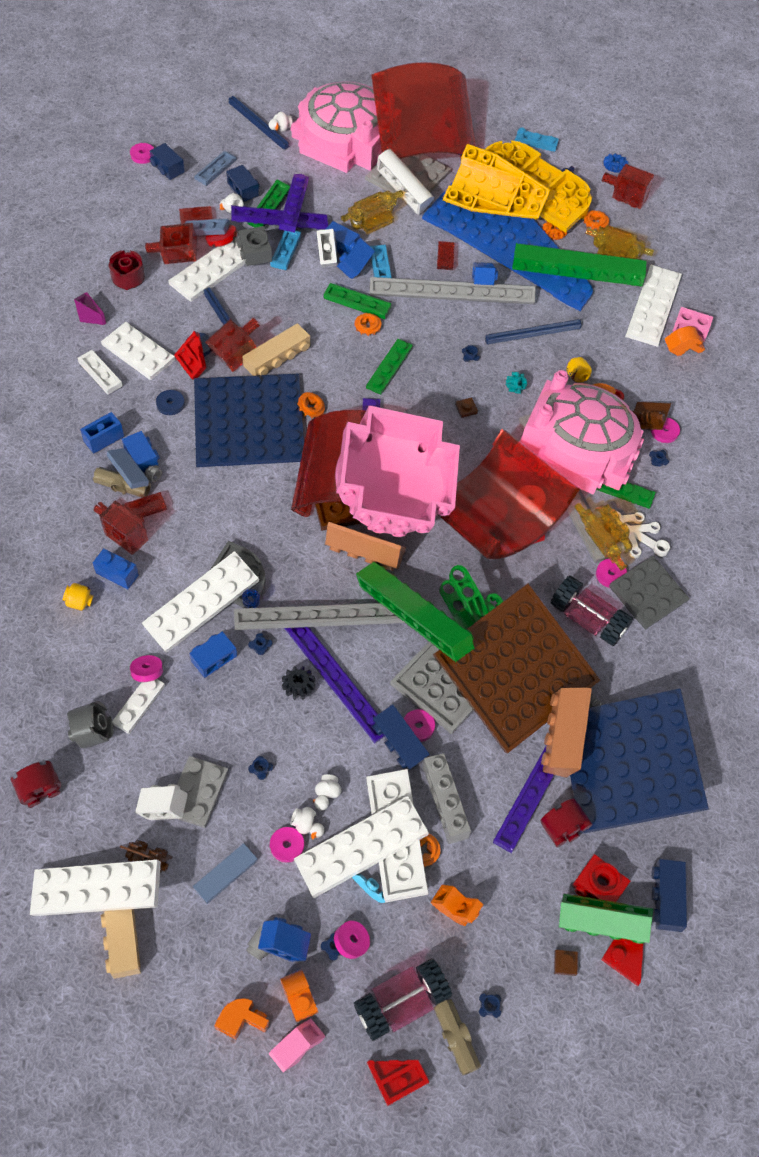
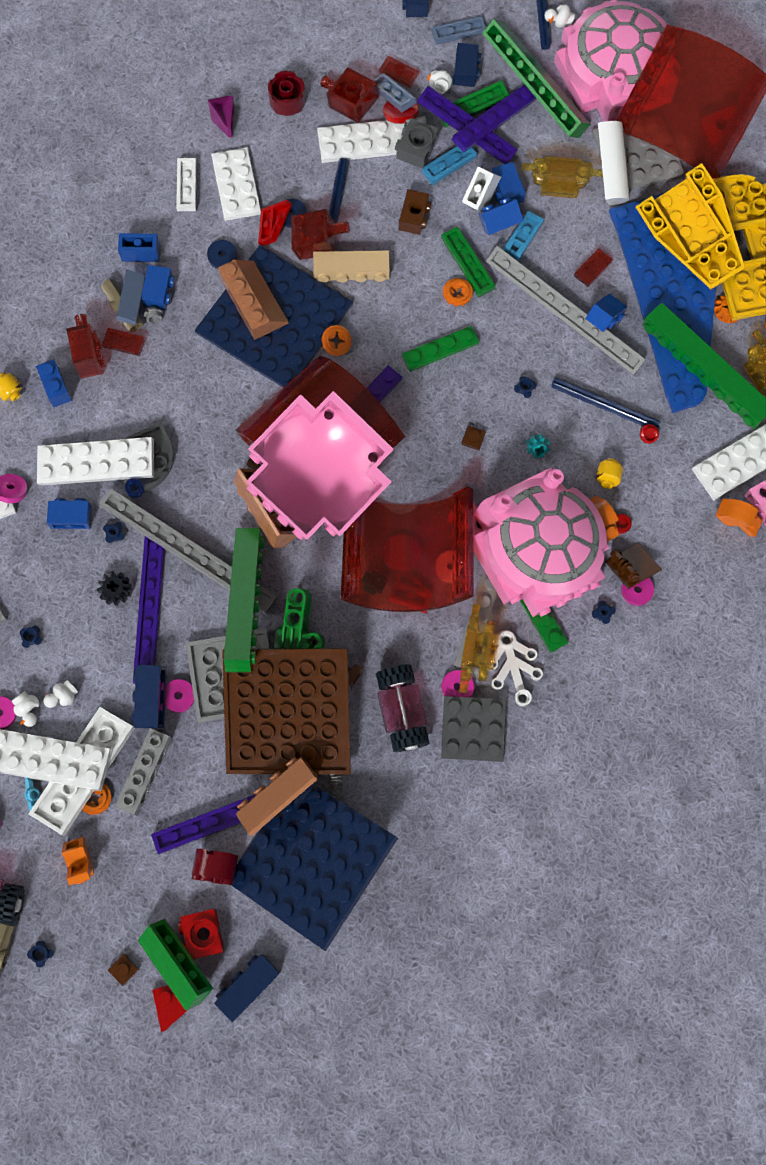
camera: 40 degrees right, 15 degrees up
(222, 413) = (252, 297): none -> nougat slope
(290, 291) = (414, 202): none -> reddish brown brick
(299, 165) = (536, 78): none -> green brick
(579, 330) = (649, 433): none -> red plate

